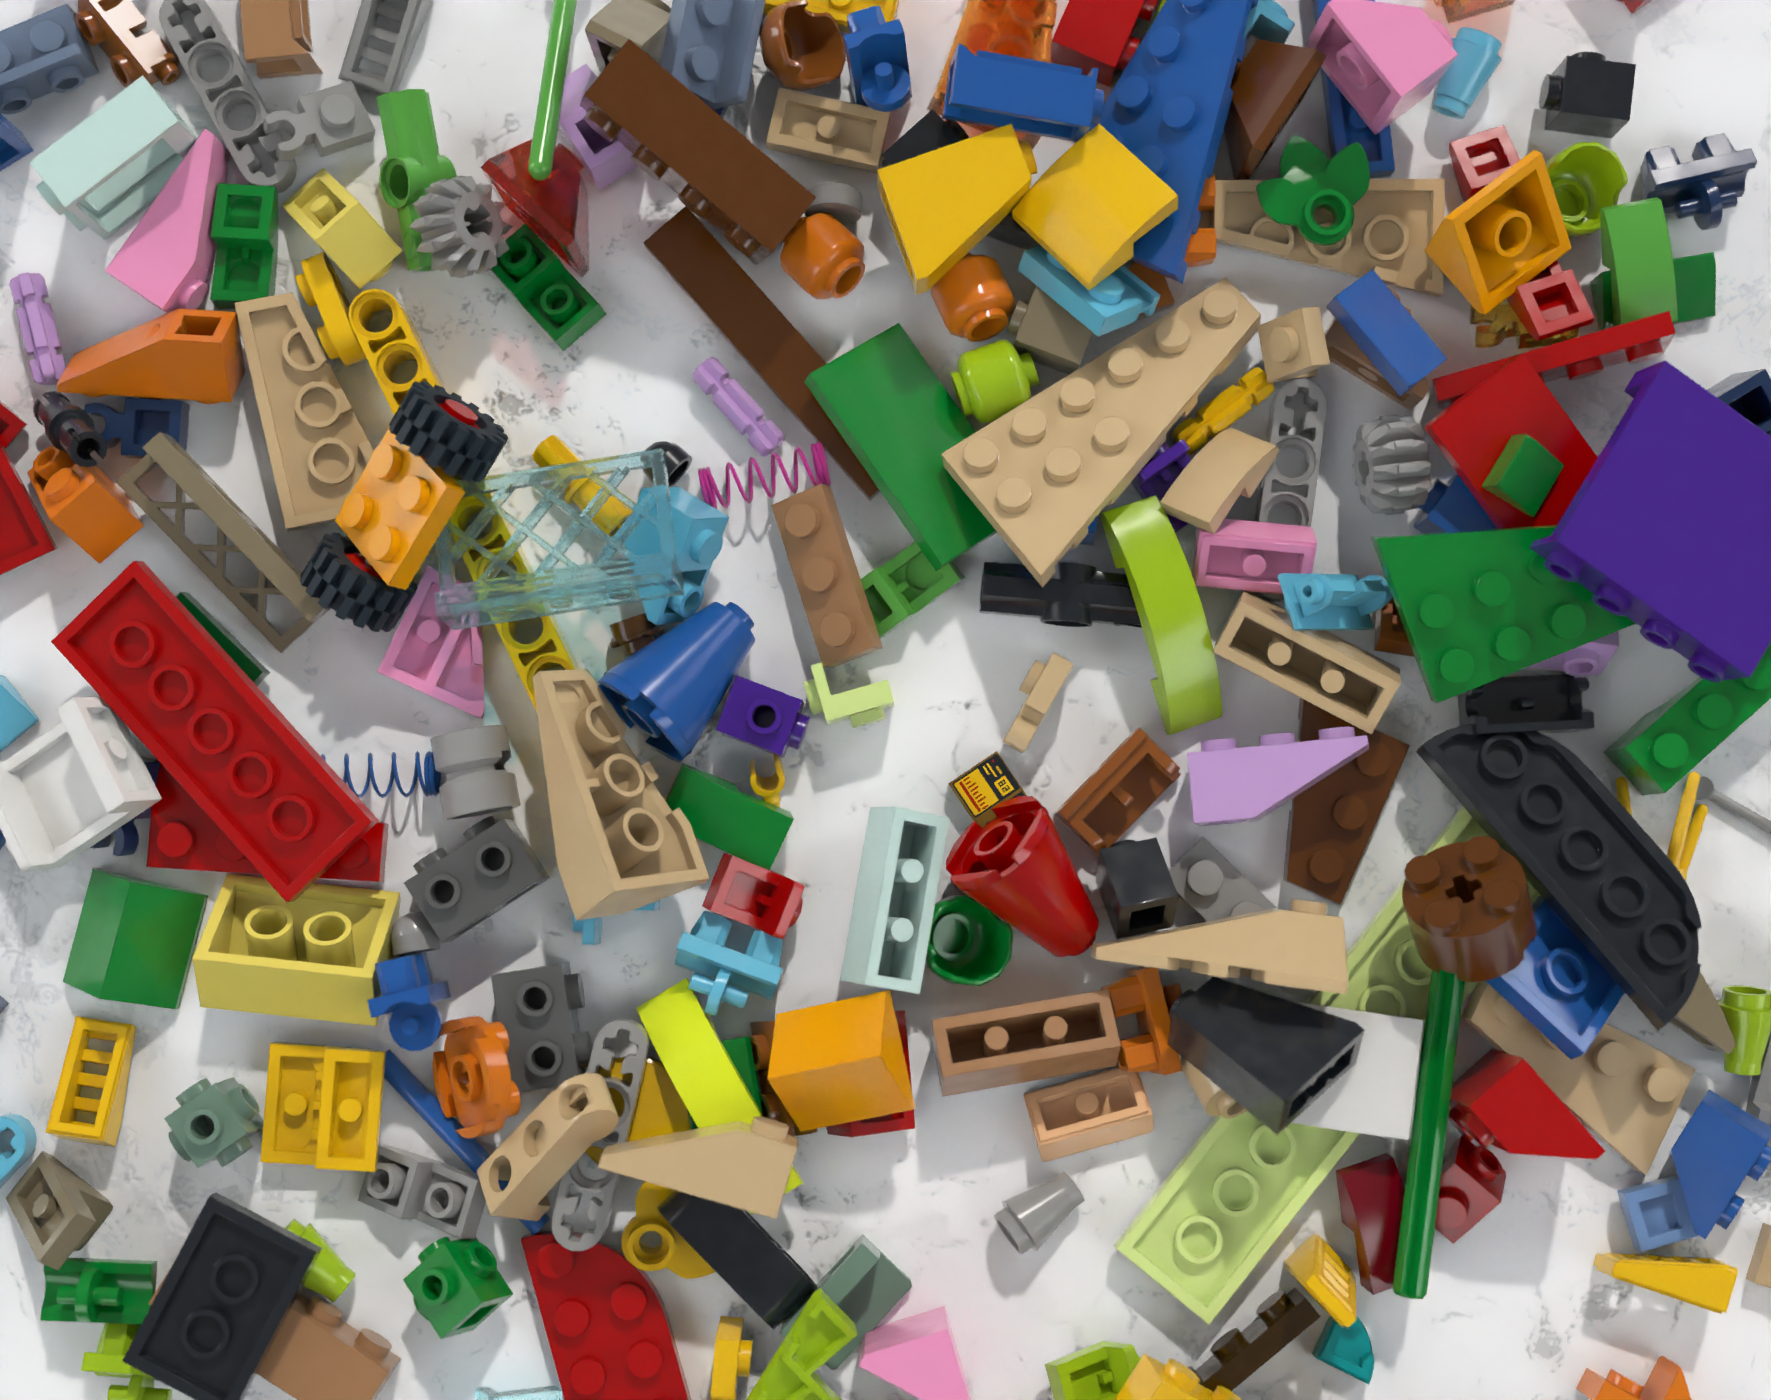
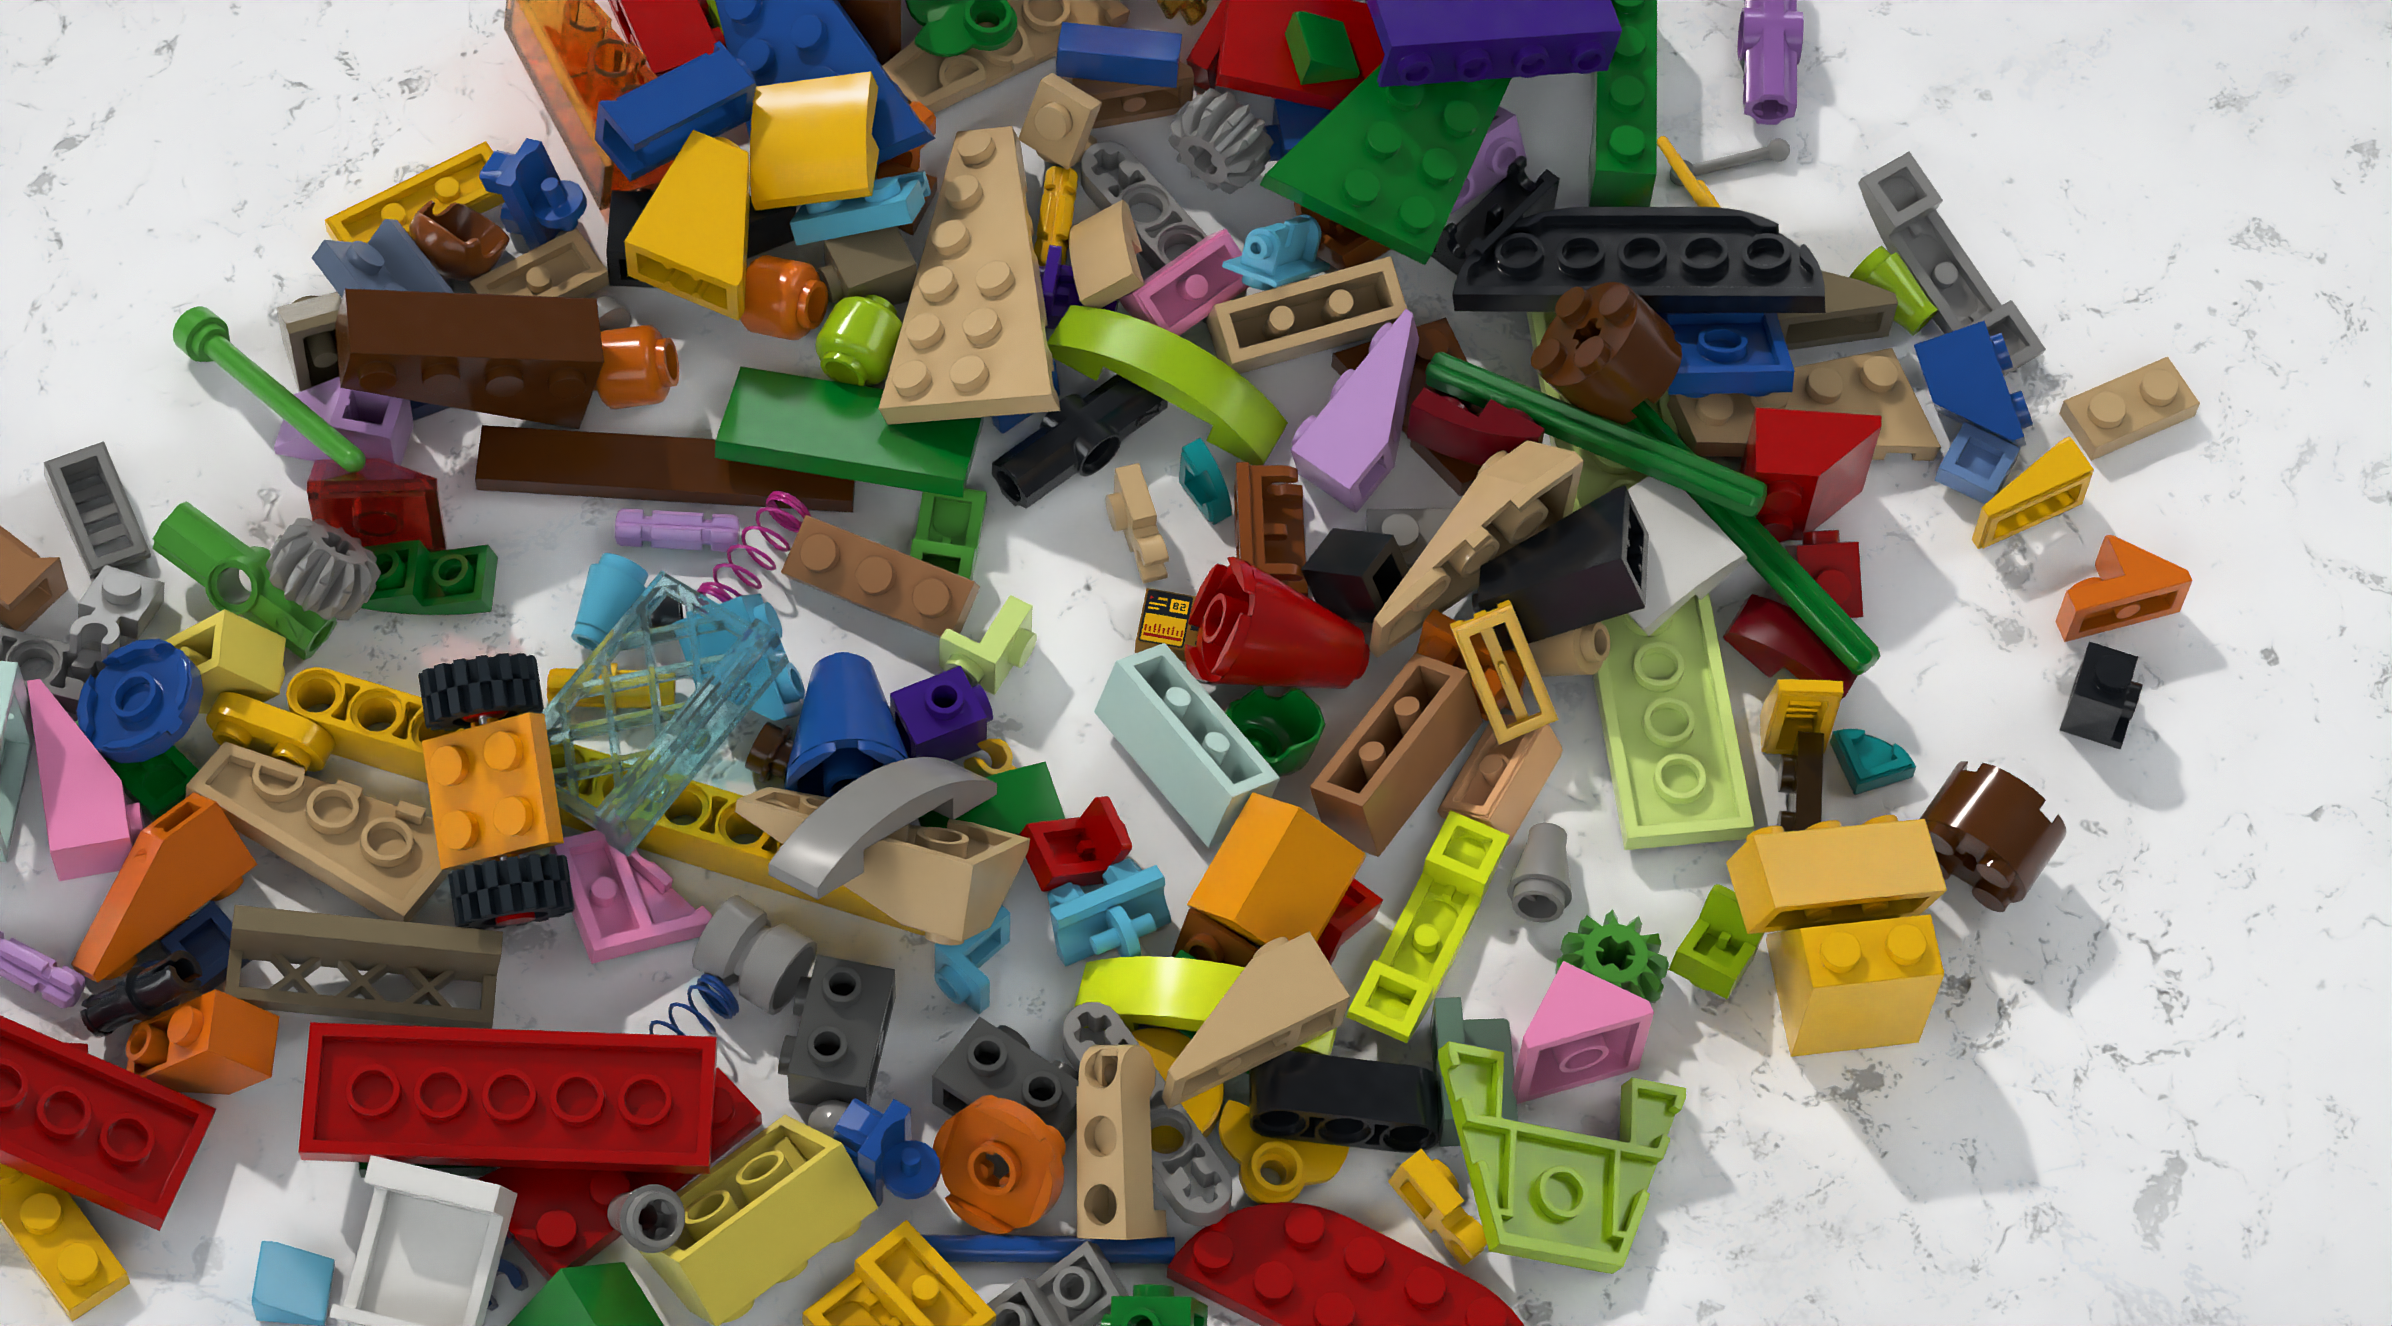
camera: 50 degrees left, 25 degrees down
(215, 898) = (648, 1217): none -> light grey cone
(257, 214) = (140, 701): none -> blue tile
(611, 774) = (833, 838): none -> light grey slope
(639, 419) = (606, 597): none -> medium azure cone
(918, 1179) = (1430, 928): none -> neon yellow slope
(989, 1334) = (1617, 949): none -> bright green gear
(1114, 712) = (1204, 482): none -> teal tile
(1159, 1036) = (1483, 623): none -> yellow tile
(1335, 882) = (1452, 430): none -> dark red slope
(1402, 955) = (1600, 435): none -> green axle

